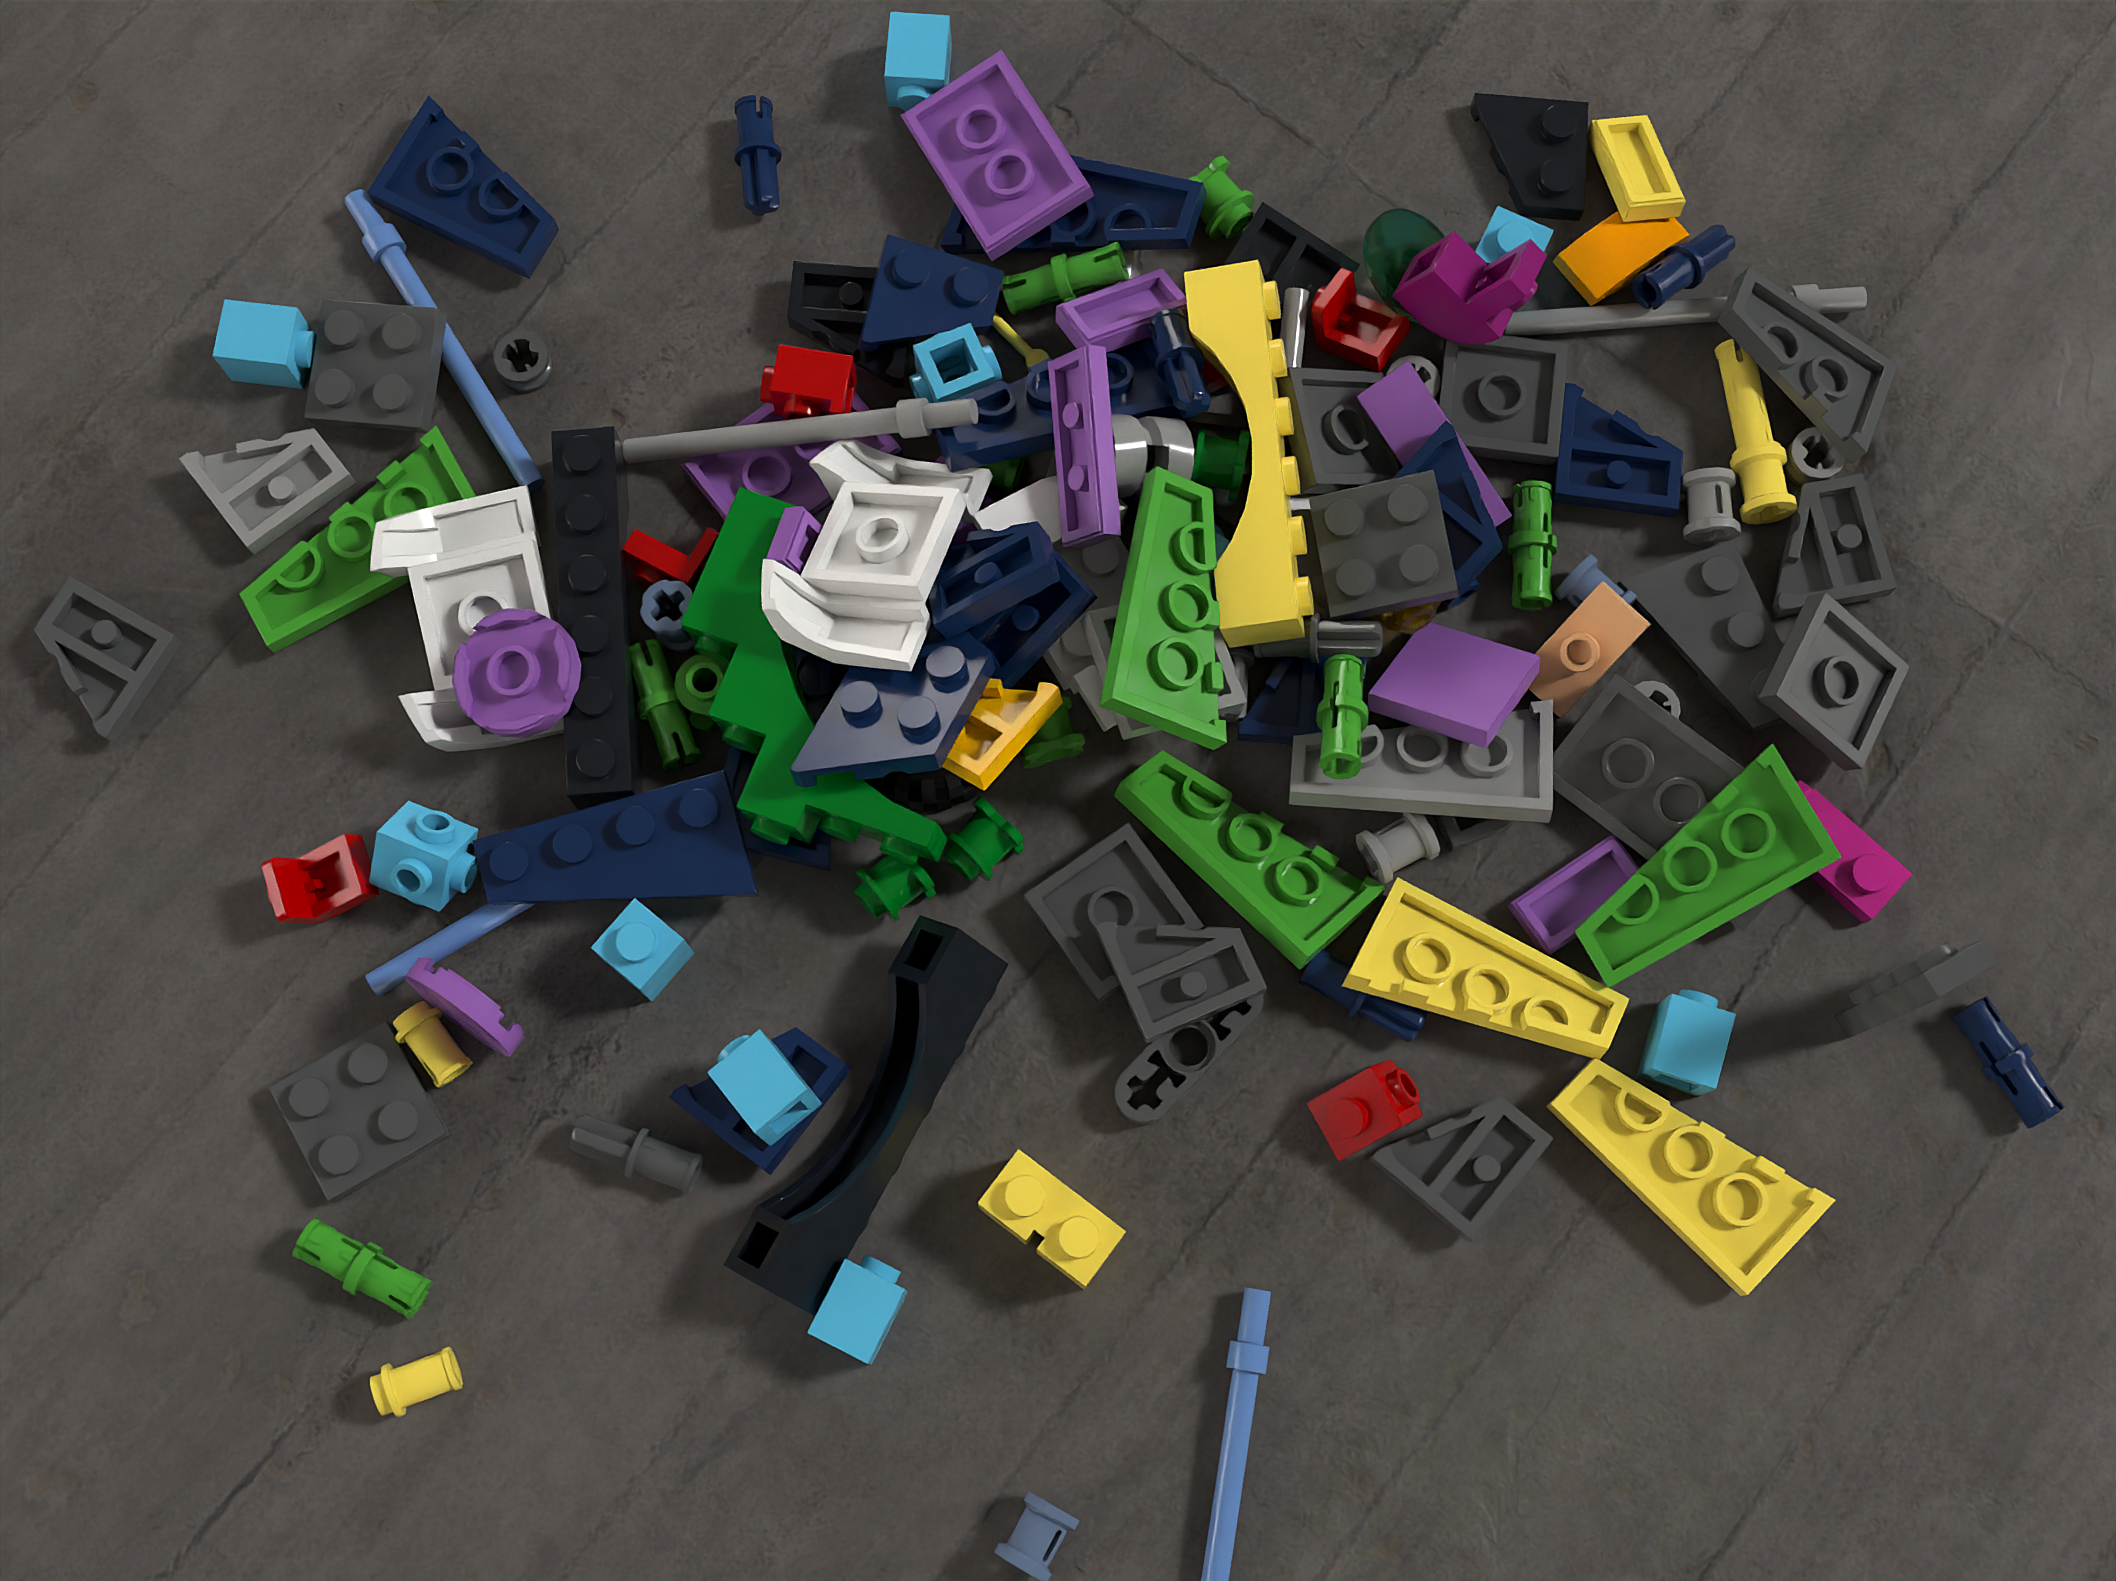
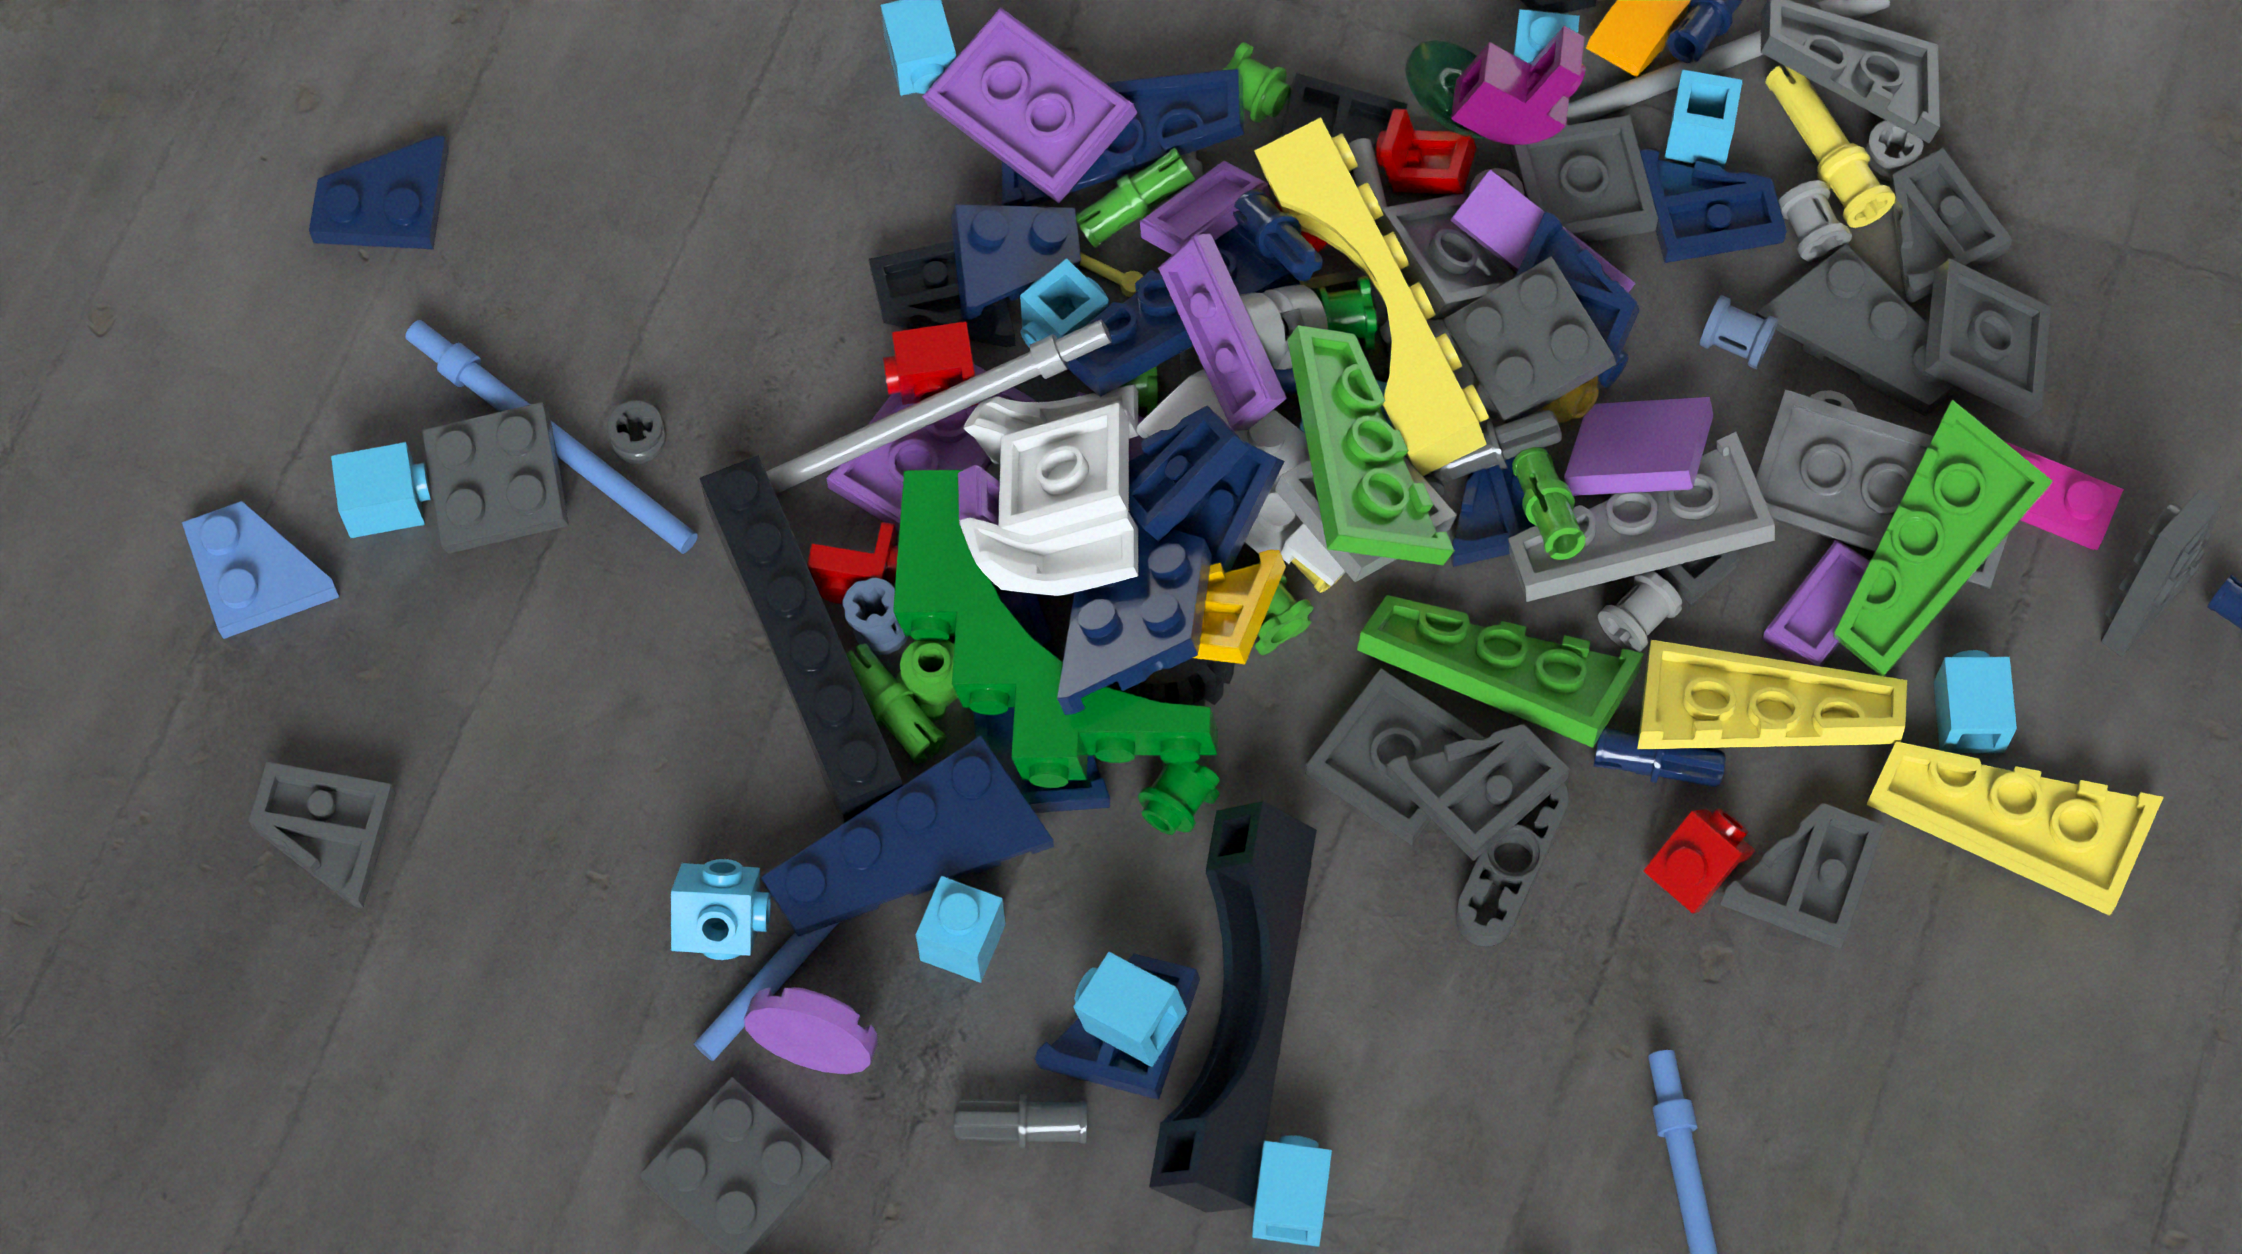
camera: 15 degrees left, 10 degrees down
(127, 384) = (252, 570): none -> medium blue wing
(270, 484) = (430, 618): light grey wing -> none
(320, 881) = (622, 966): red bracket -> none
(332, 571) = (568, 628): bright green wing -> none
(374, 60) = (384, 199): none -> dark blue wing
(431, 1043) = (784, 1083): light yellow pin -> none
(459, 193) = (514, 296): dark blue wing -> none
(461, 567) = (694, 676): white piece -> none
(516, 673) = (751, 706): medium lavender tile -> none
(757, 155) = (794, 174): dark blue axle -> none
(982, 842) = (1250, 729): green brick -> none
(1073, 1230) = (1473, 1045): light yellow piece -> none
(1532, 545) = (1663, 306): bright green pin -> none
(1585, 648) = (1749, 378): light nougat plate -> none
(1638, 370) = (1703, 118): none -> medium azure brick

